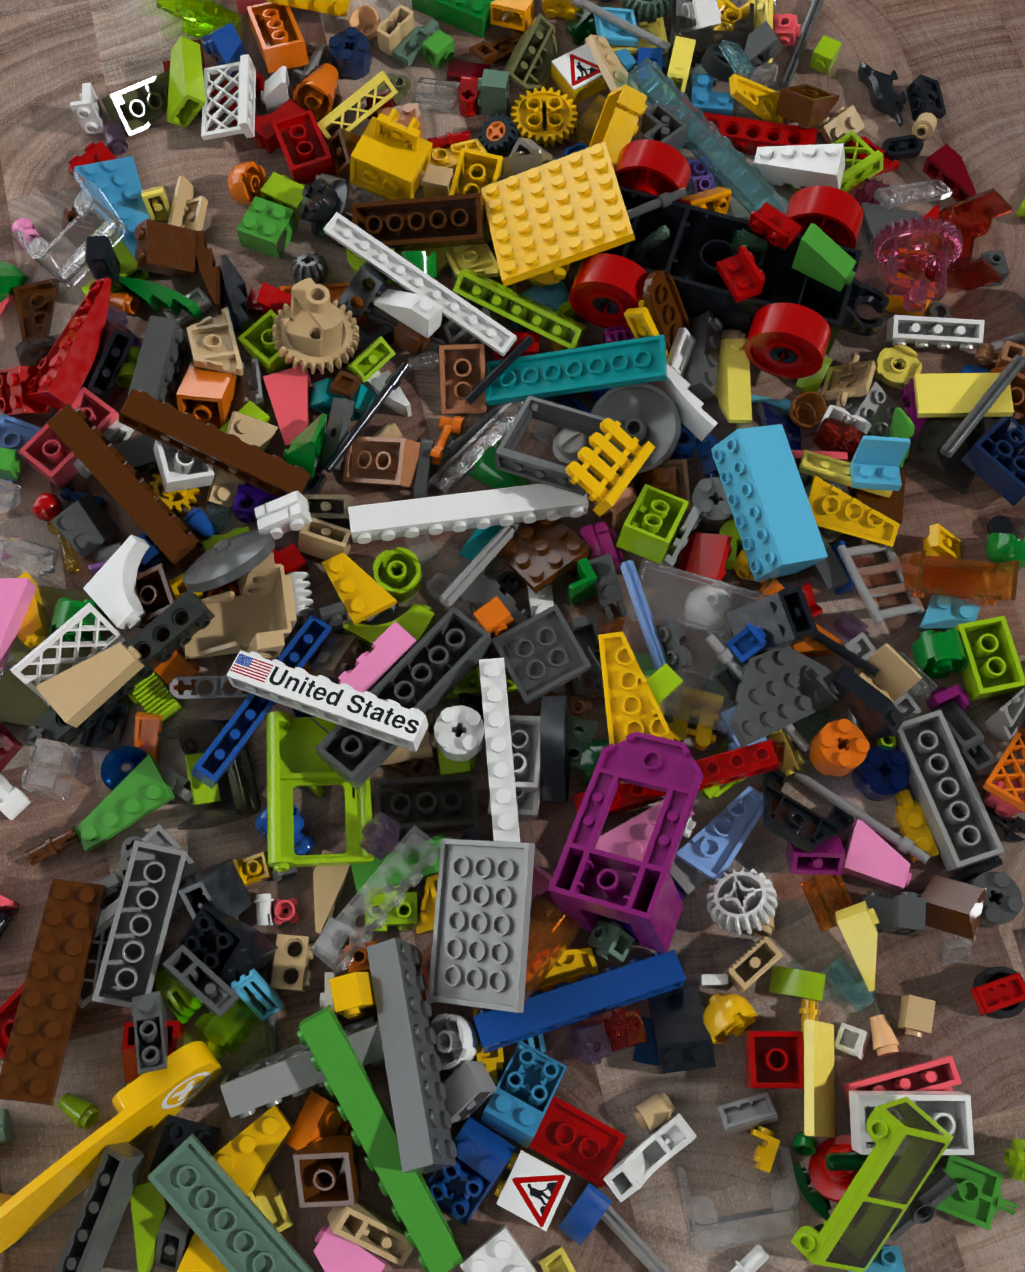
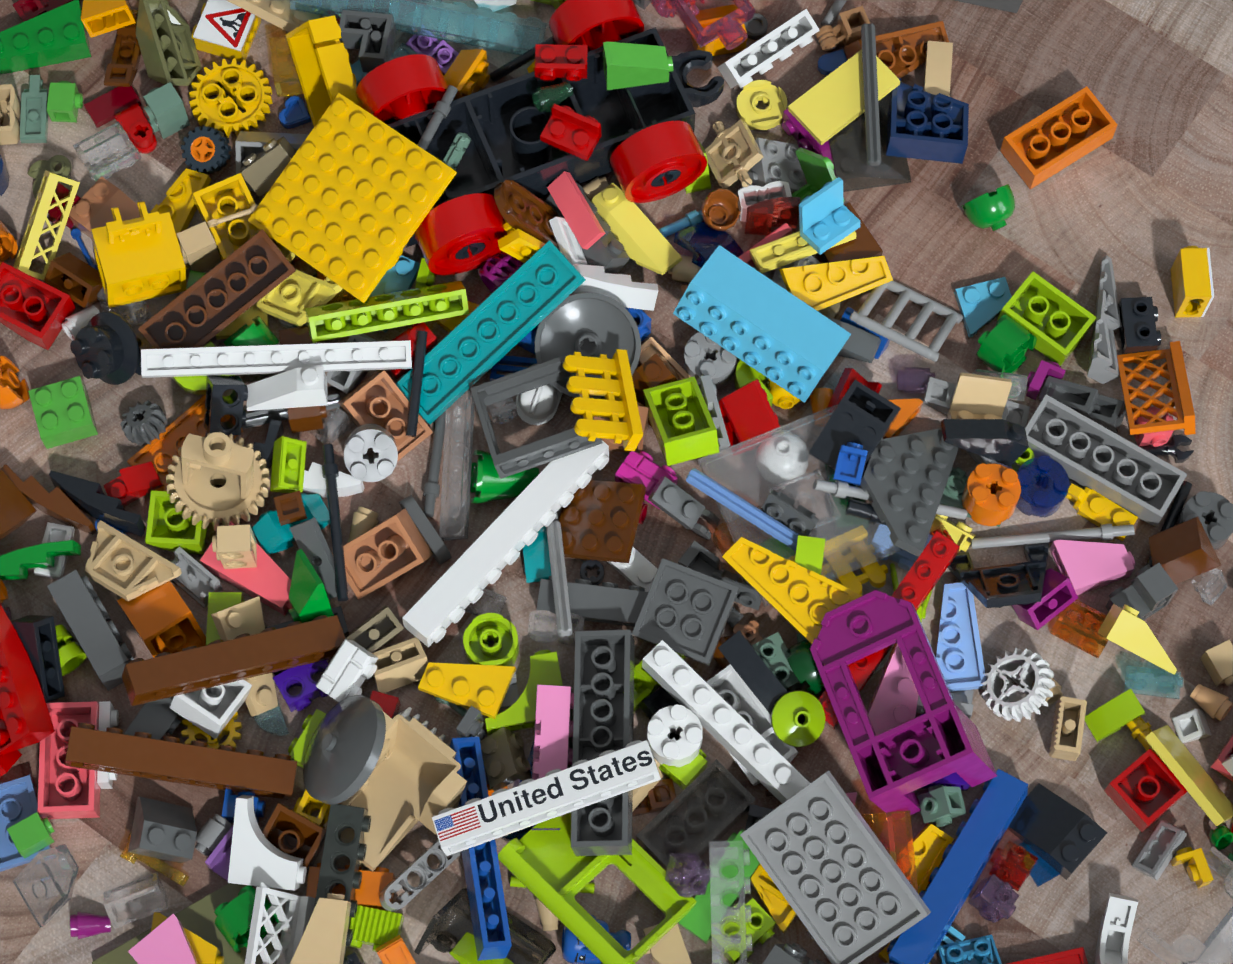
camera: 40 degrees left, 0 degrees up
(47, 507) = (107, 842): red piece -> none
(73, 495) = (123, 810): dark blue axle -> none
(200, 523) = (268, 741): blue cone -> none
(283, 191) = (49, 365): lime brick -> none
(286, 380) = (235, 546): none -> tan brick
(417, 392) = (357, 460): none -> brick
(446, 140) = (159, 188): red pin -> none
(449, 426) = (412, 470): orange brick -> none
(457, 174) = (214, 222): none -> tan hinge
(494, 617) = (617, 612): orange brick -> none
(553, 779) = (785, 718): none -> lime dish
(585, 583) = (659, 516): green panel -> none
(654, 1111) = (1088, 910): tan brick -> none
(703, 334) = (576, 210): none -> coral tile
(704, 450) = (663, 311): blue hinge -> none
(713, 980) = (1047, 768): white tile -> none
(727, 1016) = (1082, 785): yellow cylinder -> none
(846, 654) = (935, 407): black bar -> none
(941, 543) = (930, 246): yellow slope -> none
(959, 578) = (969, 265): clear orange windscreen -> none
(999, 524) = (964, 190): black tile -> none

